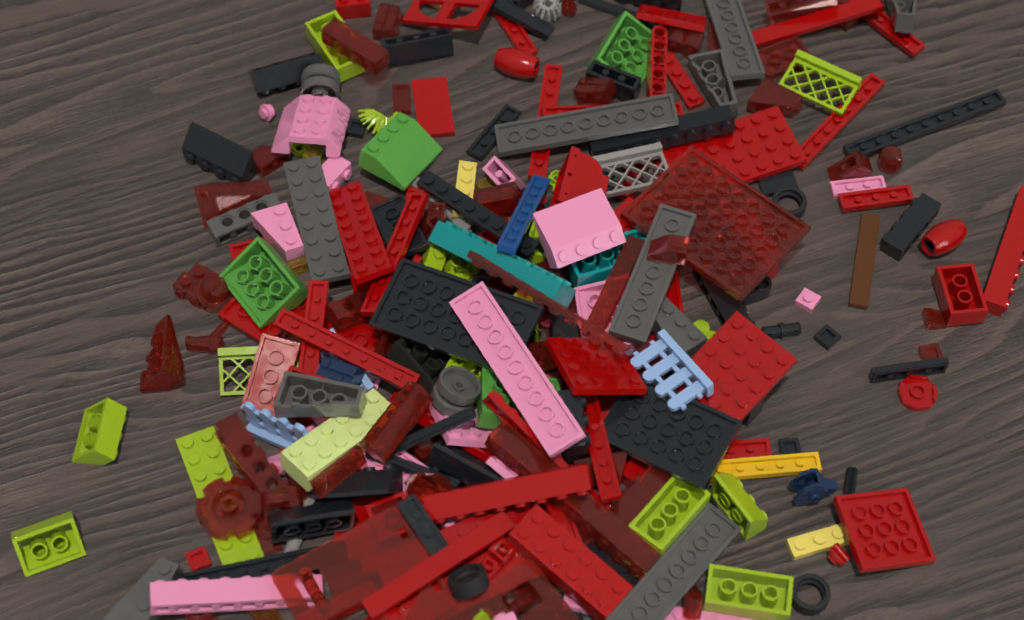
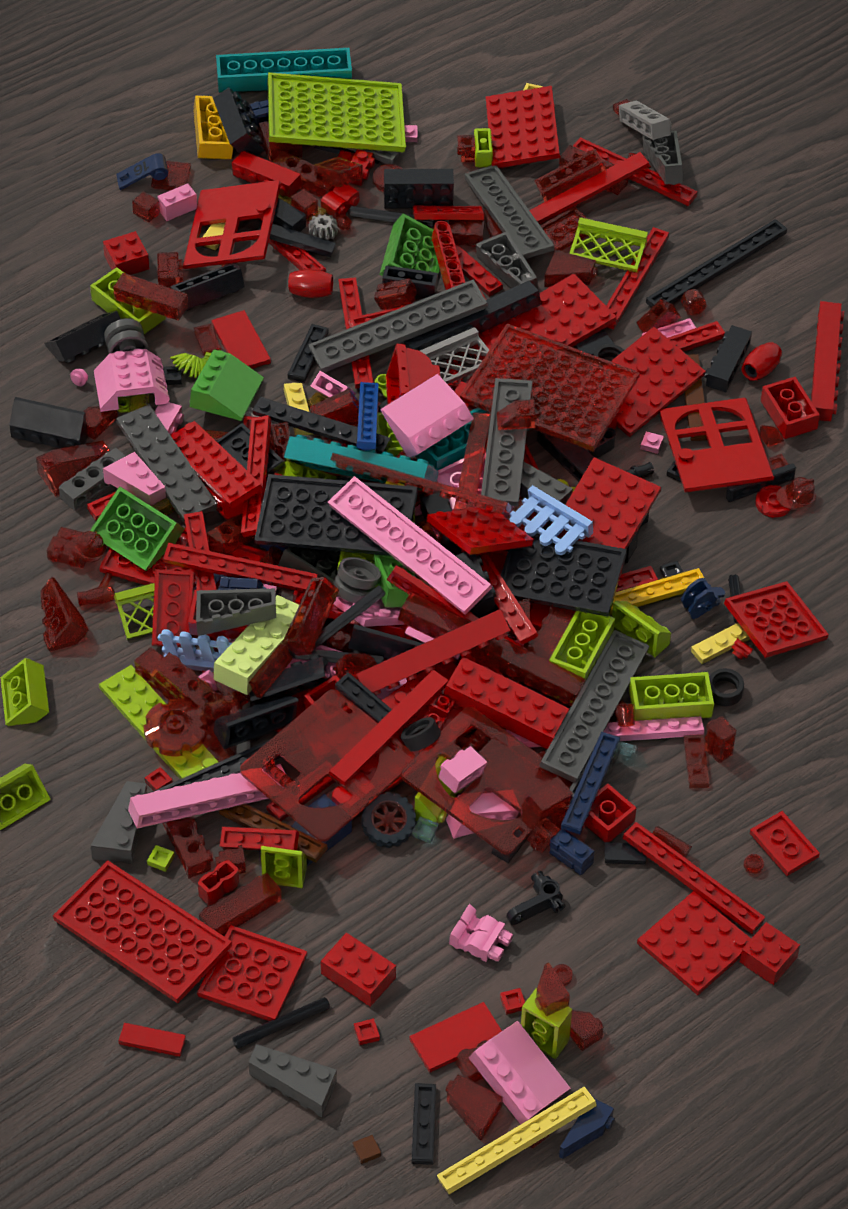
camera: 15 degrees left, 5 degrees down
(836, 232) = (662, 378): none -> red plate
(869, 341) = (719, 464): none -> red door
(943, 390) = (797, 493): none -> clear red piece

